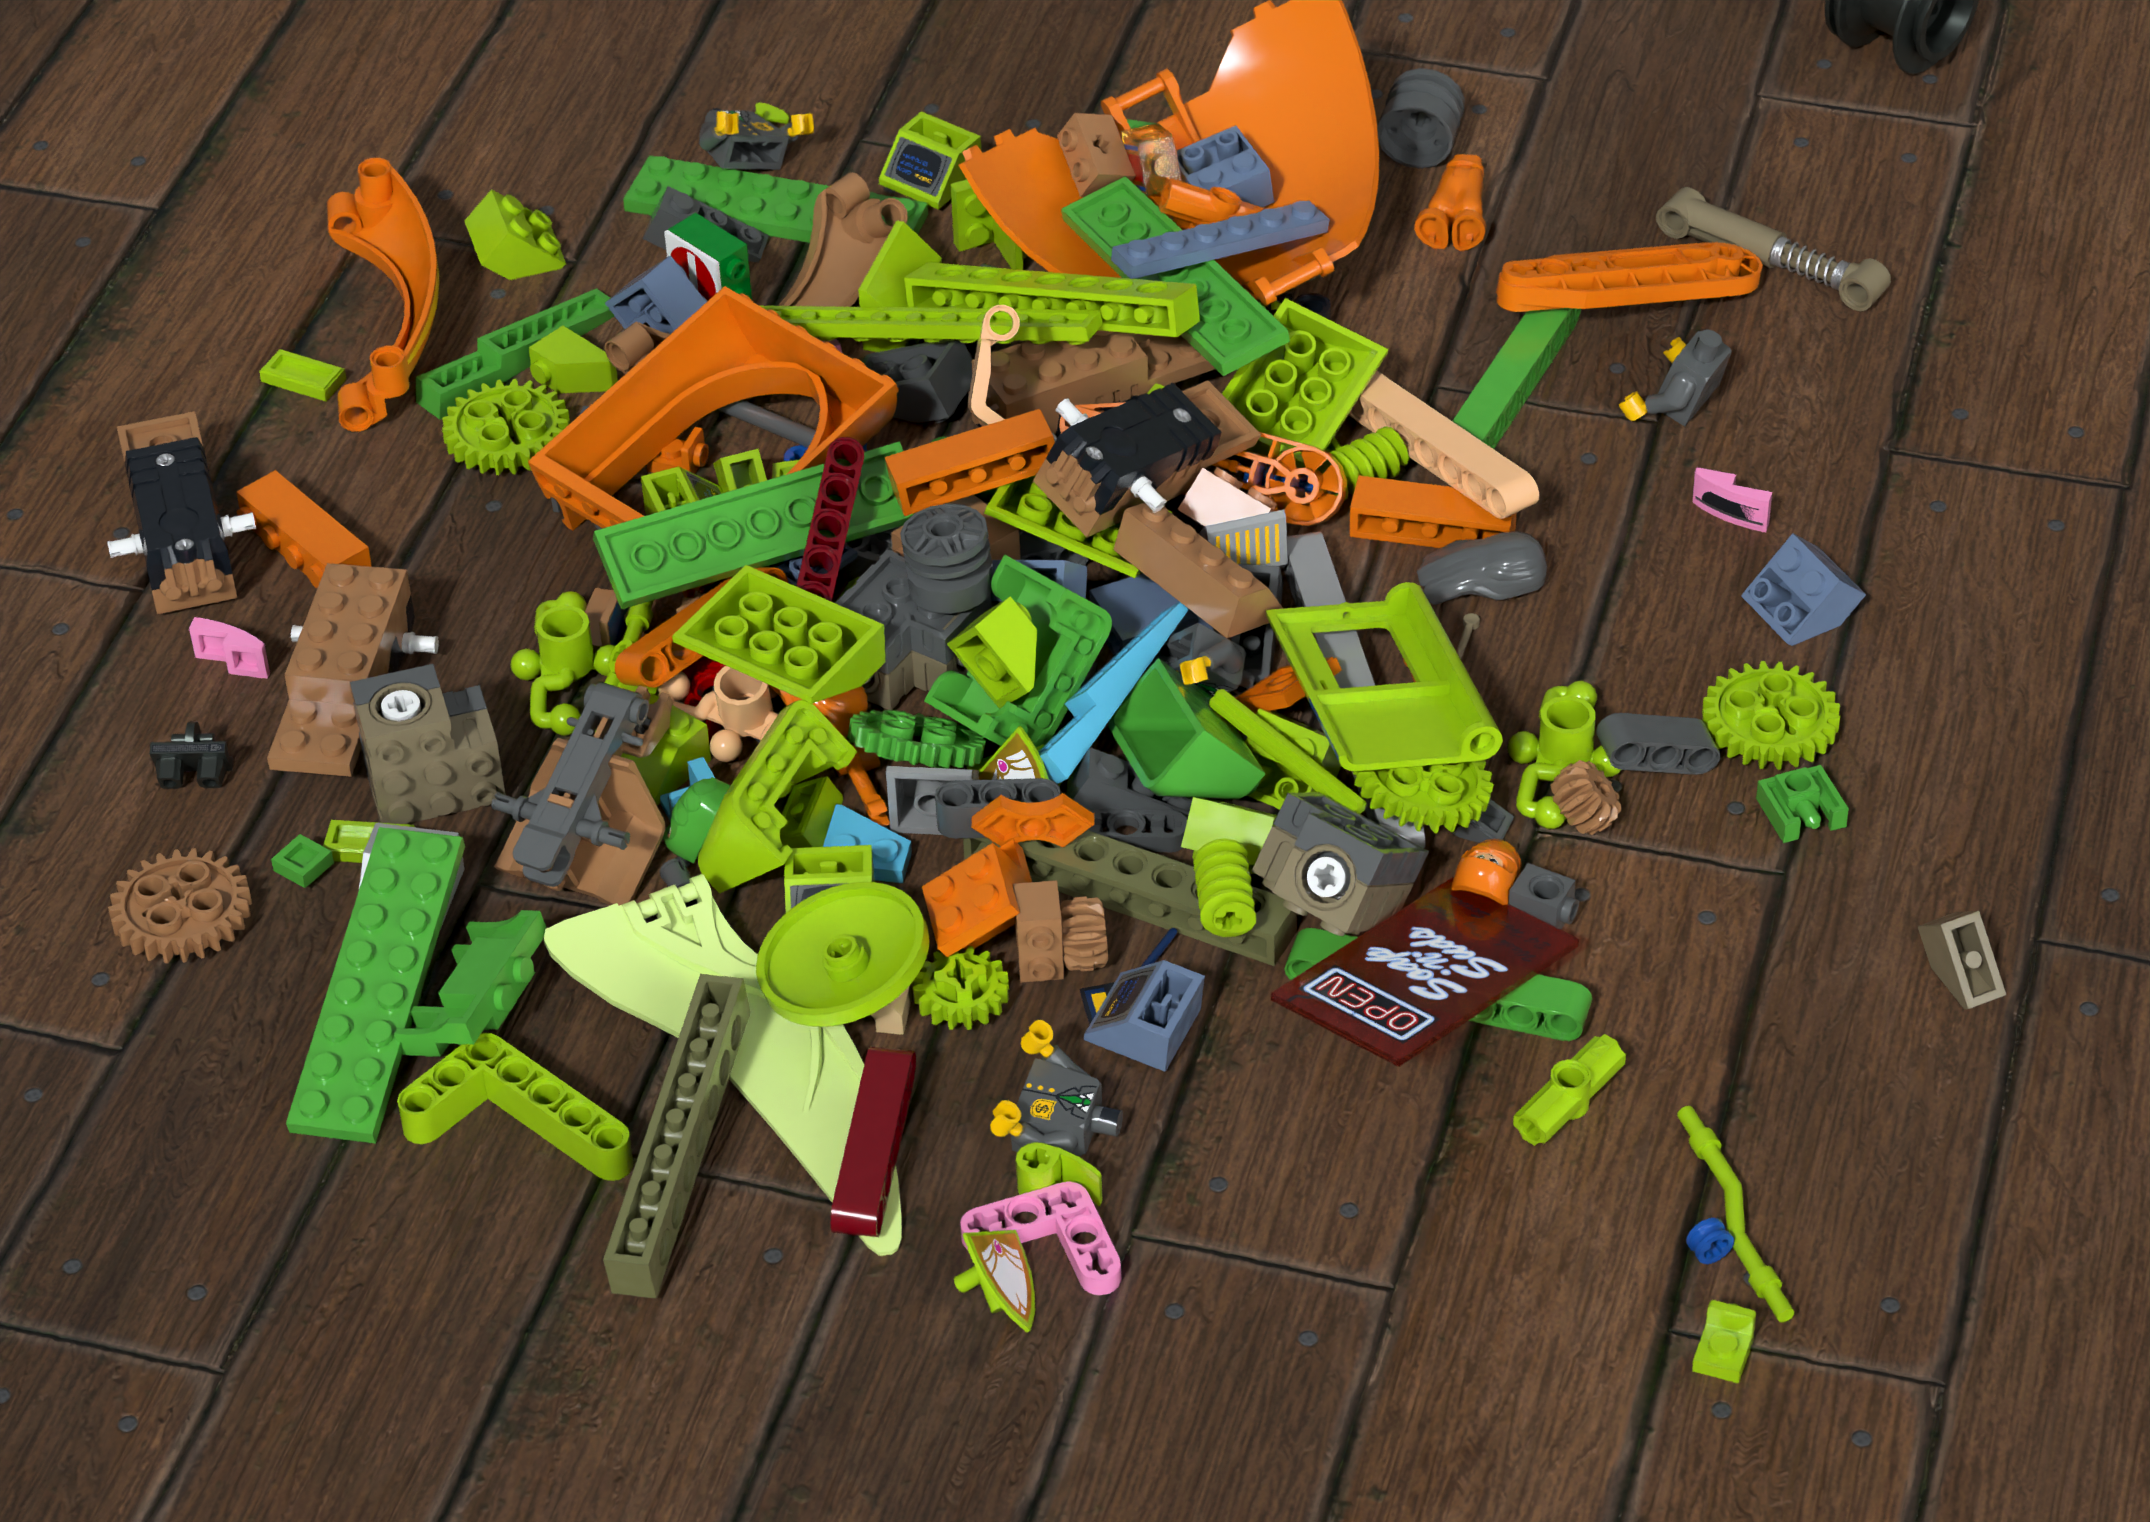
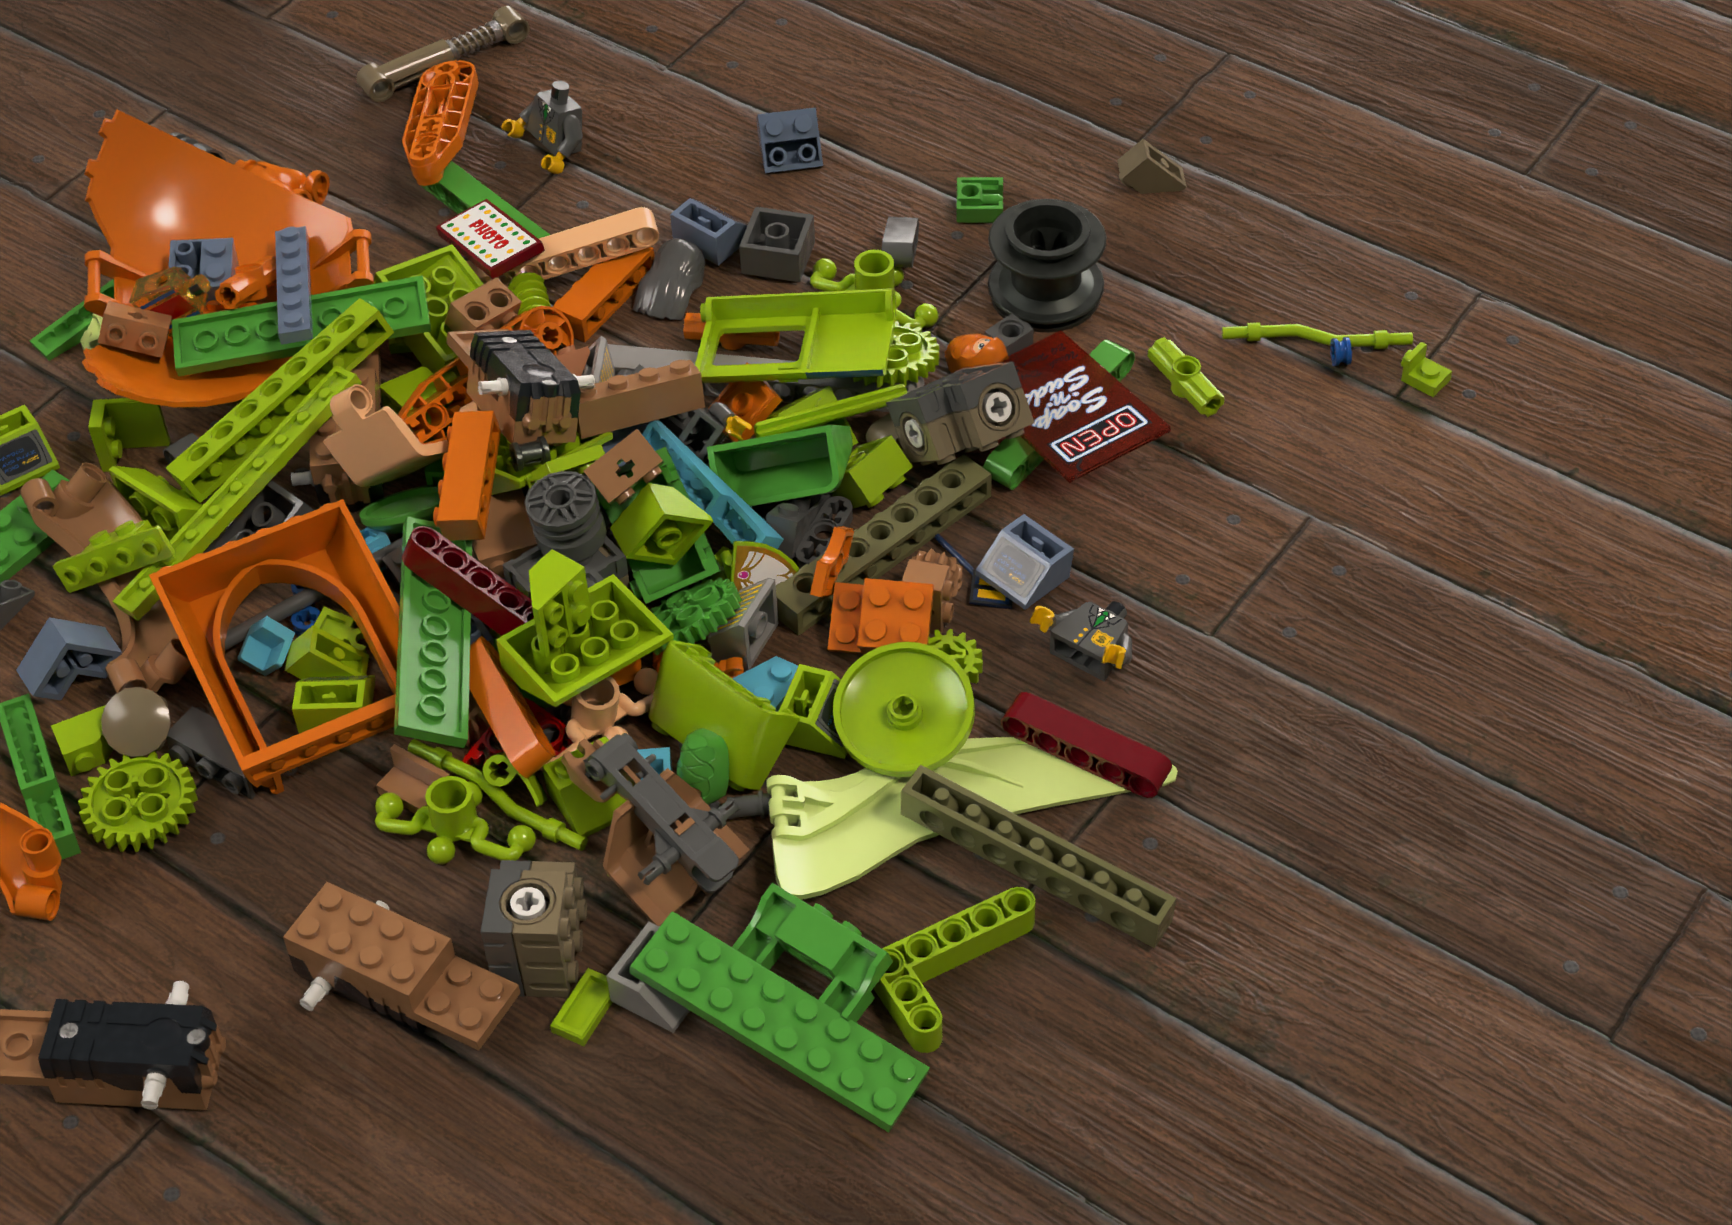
camera: 70 degrees left, 5 degrees up
(180, 905) = (637, 1150): medium nougat gear -> none
(191, 753) = (433, 1099): pearl dark grey hips -> none
(226, 643) = (302, 1049): bright pink slope -> none
(299, 527) = (203, 962): orange brick -> none
(302, 861) = (590, 1055): bright green plate -> none
(582, 376) = (136, 721): none -> dark tan dish
(685, 454) = (255, 689): orange bracket -> none
(709, 256) = (46, 597): green piece -> none
(740, 435) = (266, 646): none -> medium azure panel
(781, 573) = (558, 600): none -> lime slope
(799, 275) = (114, 554): none -> lime bracket
(962, 799) = (793, 591): dark grey beam -> none
(1002, 1273) = (1234, 716): shield -> none
(1016, 565) = (605, 469): none -> medium nougat brick
(1029, 498) = (529, 453): none -> pearl dark grey bush
(1034, 541) = (573, 462): none -> lime plate
(1045, 1165) = (1148, 655): lime panel -> none
(1064, 1222) = (1194, 666): bright pink beam -> none
(1224, 888) = (951, 479): lime piece -> none
(1297, 405) = (483, 308): none -> medium nougat brick
(1426, 380) = (490, 239): none -> tile
(1586, 797) = (933, 288): medium nougat gear -> none
(1588, 634) = (777, 244): none -> dark grey brick
(1589, 570) = (709, 228): none -> sand blue slope
(1675, 883) = (1047, 264): none -> pearl dark grey wheel
(1736, 504) = (676, 148): bright pink slope -> none
(1771, 715) = (893, 187): lime gear -> none

